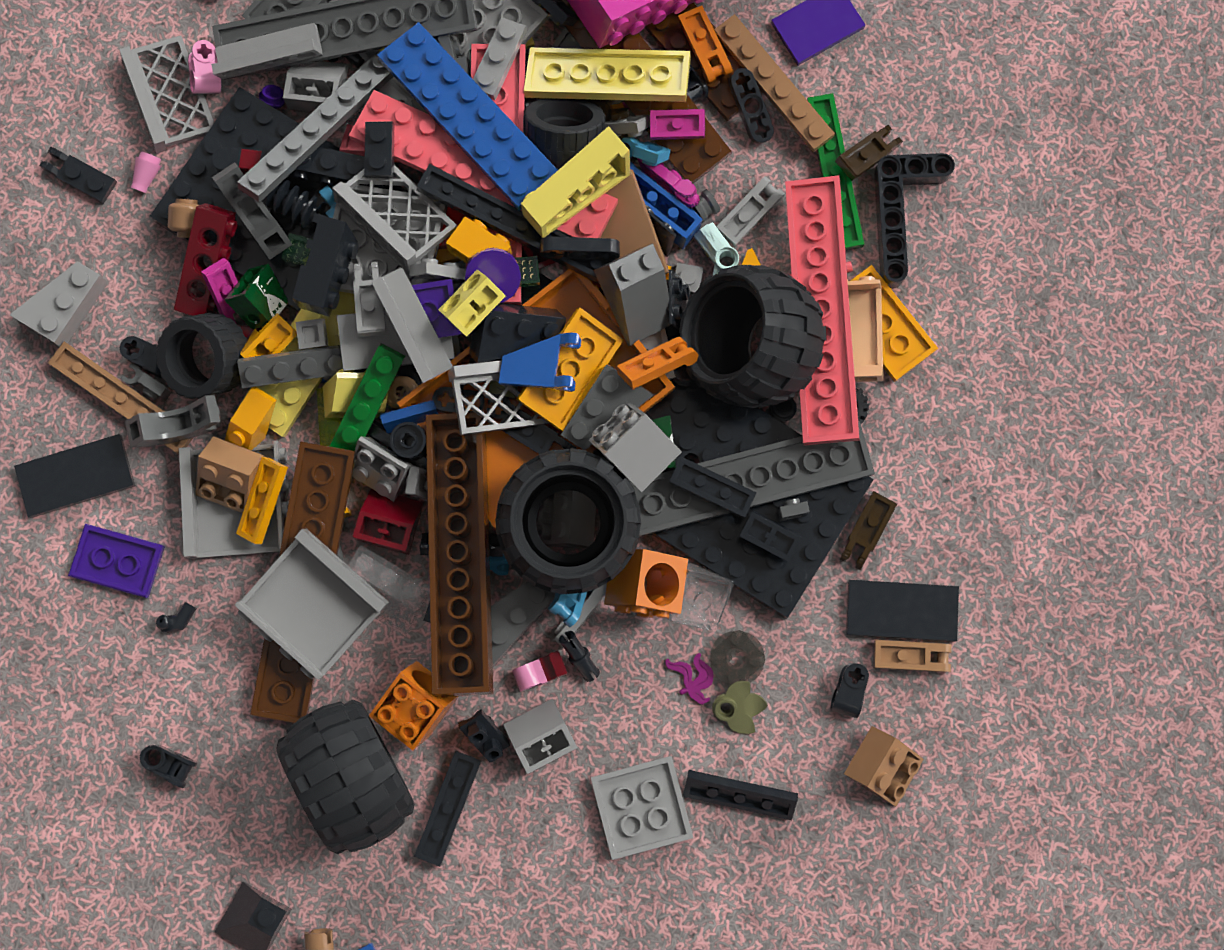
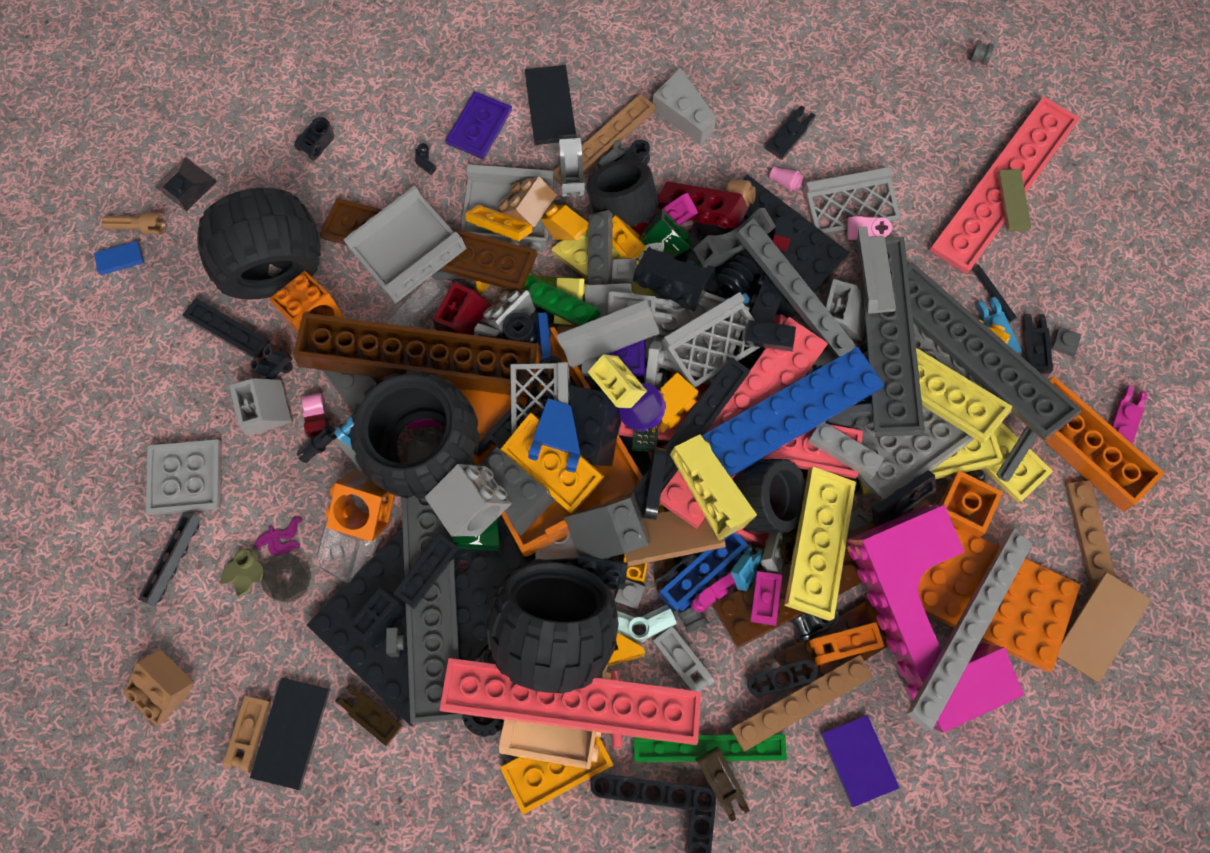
camera: 100 degrees right, 10 degrees down
(272, 95) = (839, 274): dark purple plate -> none
(657, 362) = (540, 533): orange plate -> none
(850, 696) = (229, 669): black piece -> none

